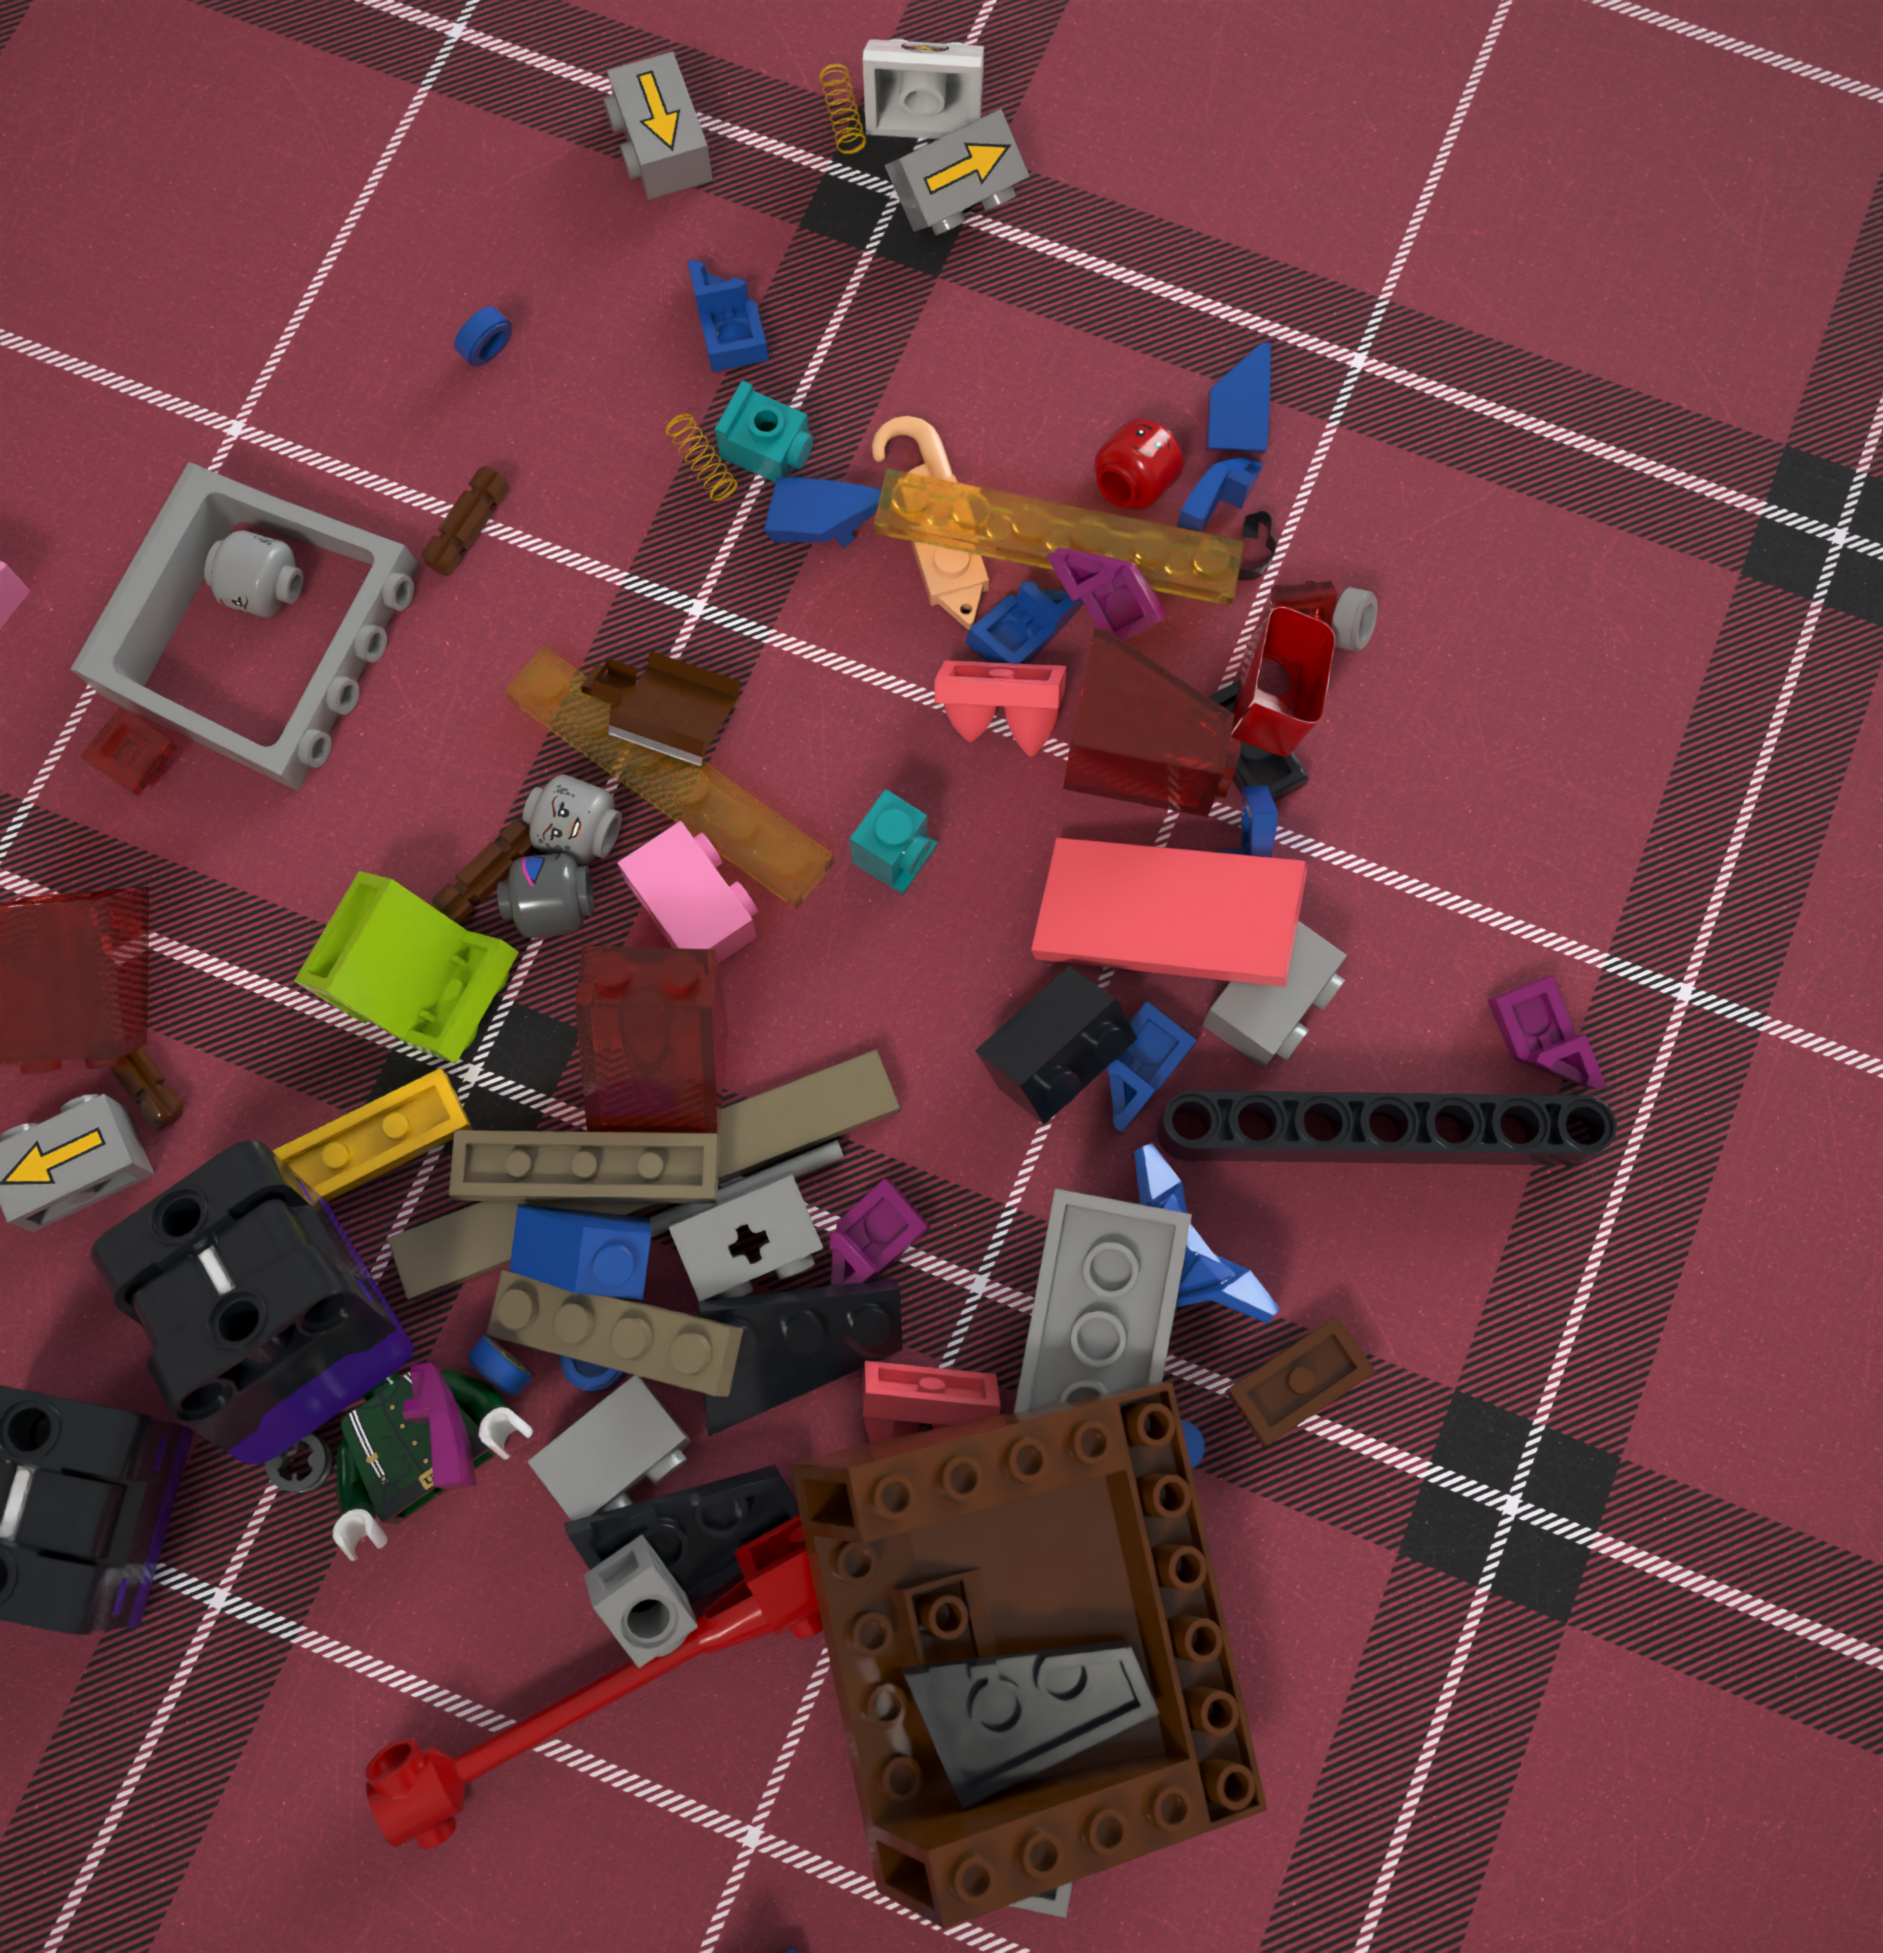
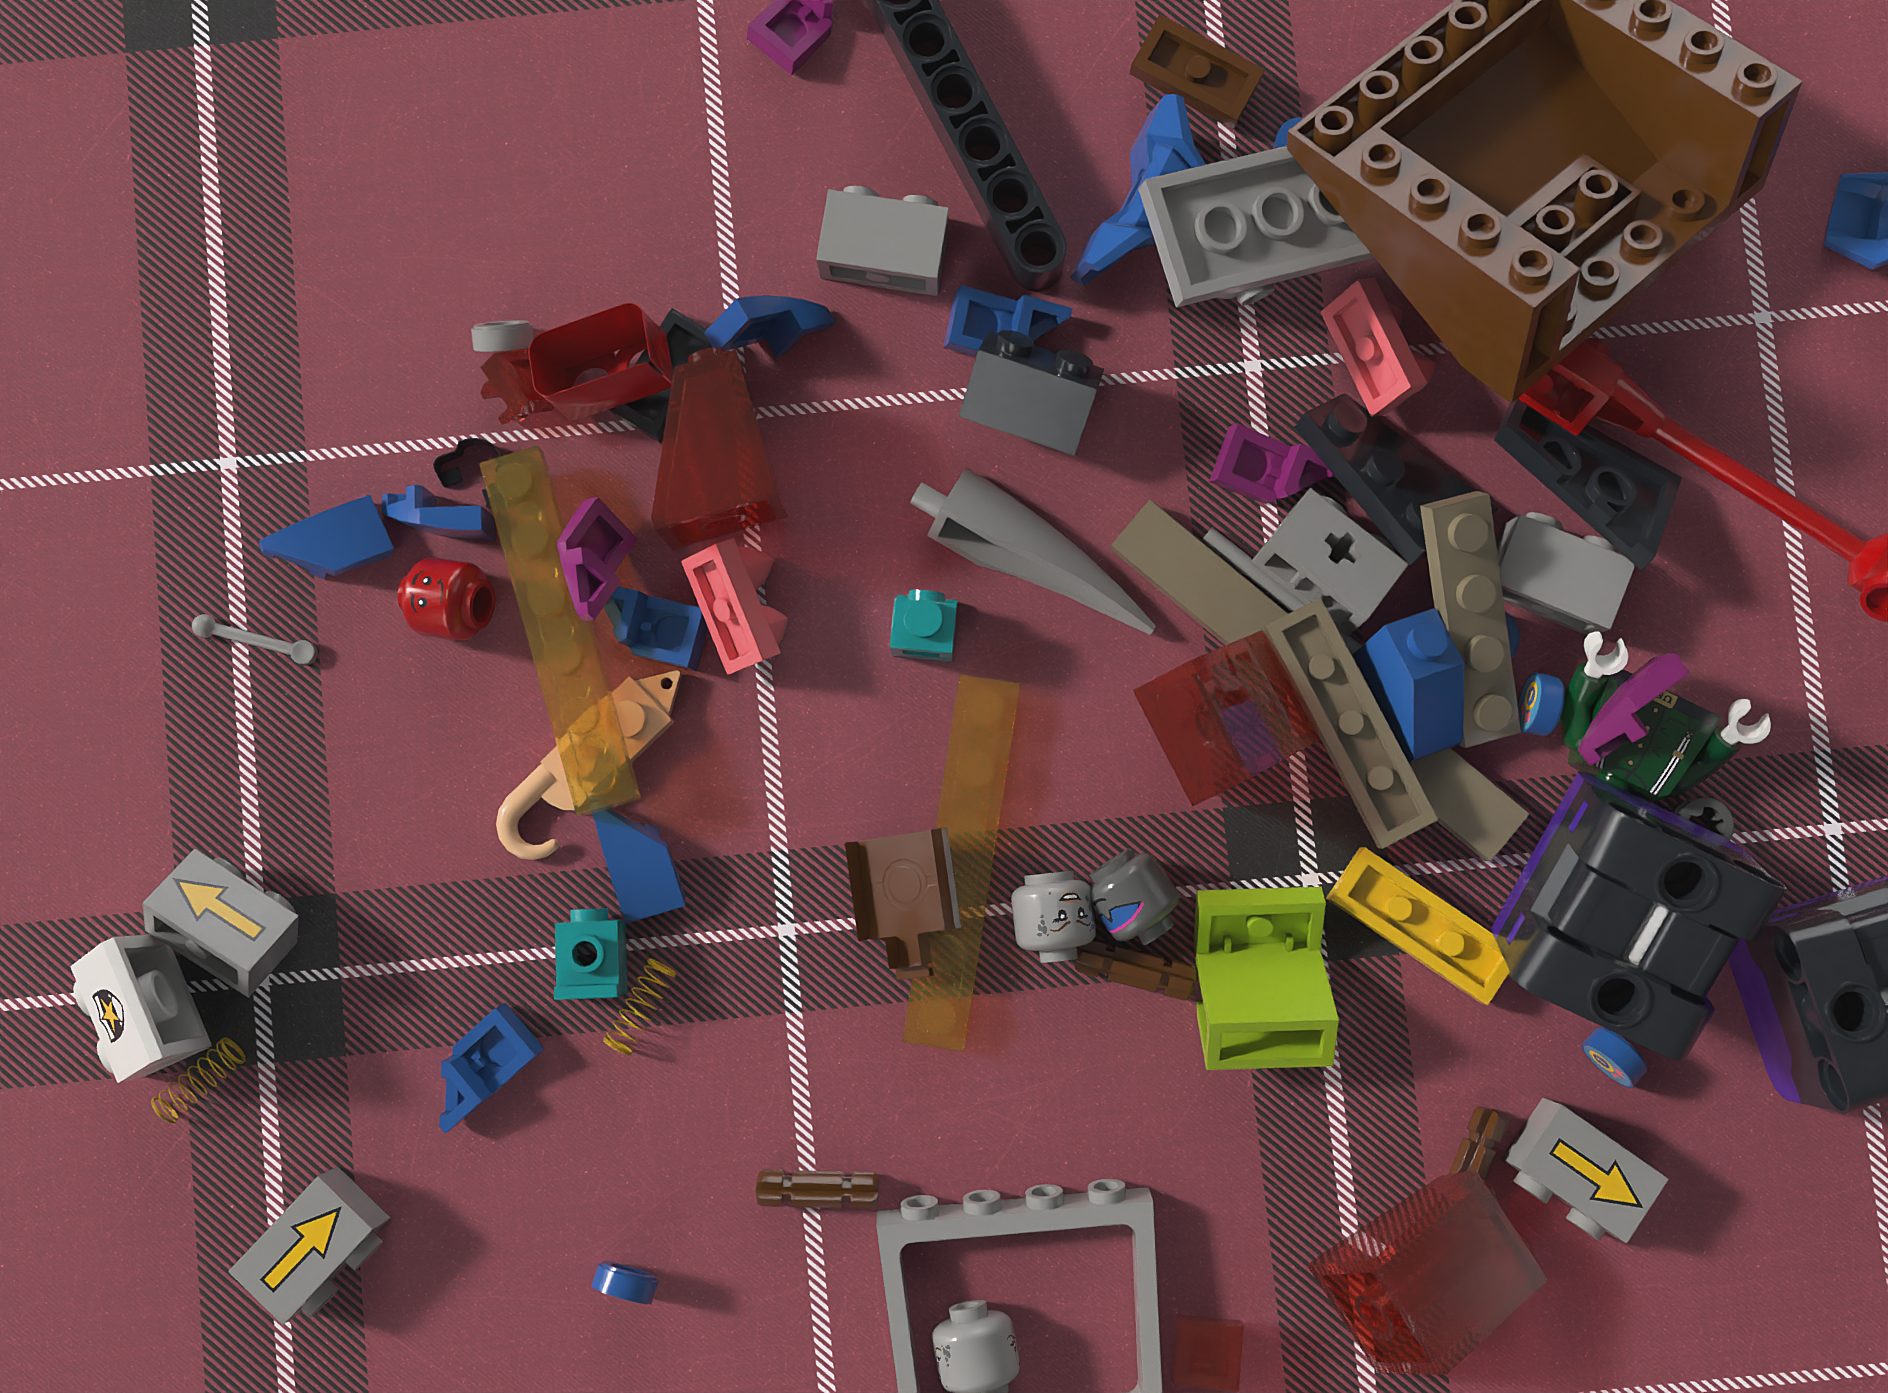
camera: 115 degrees left, 10 degrees up
(629, 1578) = (1667, 475): light grey brick -> none
(687, 895) = (1068, 773): bright pink brick -> none
(936, 967) = (1010, 538): none -> light grey piece
(1026, 1710) = (1589, 126): black wing -> none
(1158, 340) = (301, 652): none -> light grey hinge
(1170, 911) = (864, 355): coral tile -> none

